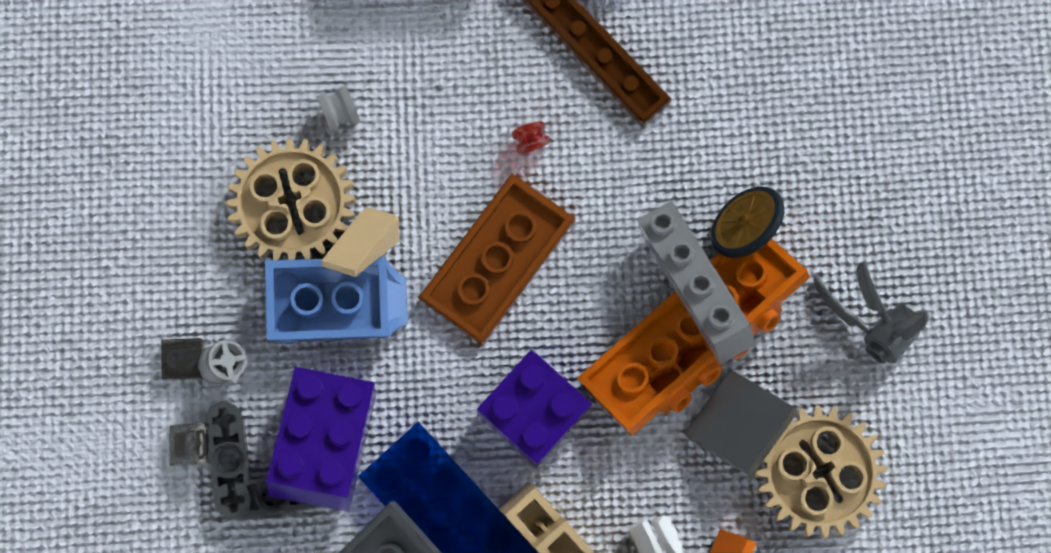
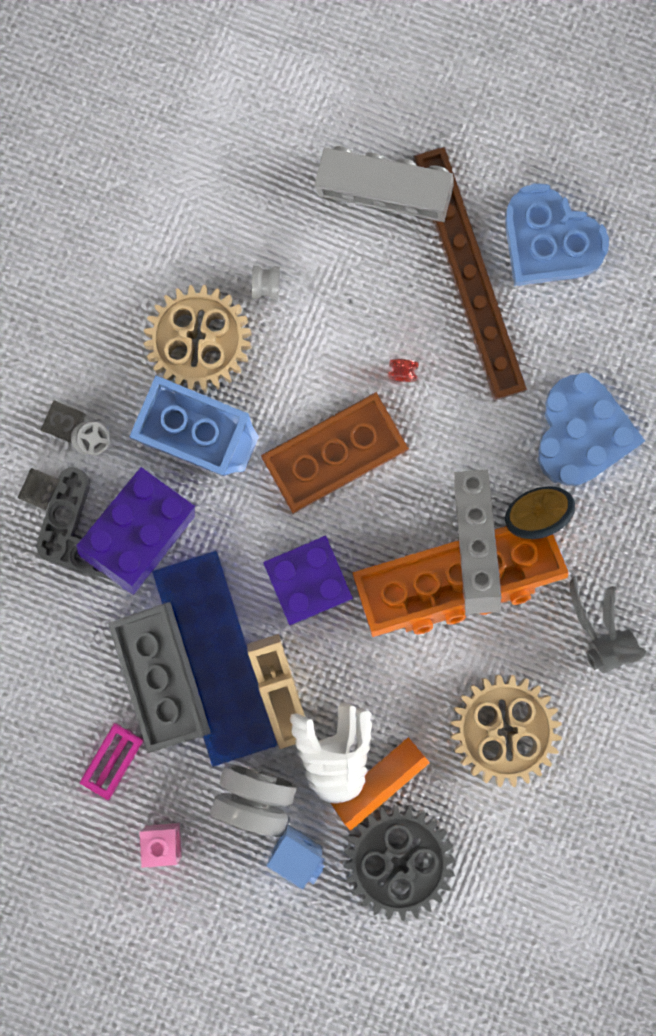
camera: 30 degrees right, 5 degrees up
(363, 242) = (236, 395): tan slope -> none
(741, 423) = (461, 665): dark grey tile -> none
(753, 115) = (585, 431): none -> medium blue plate

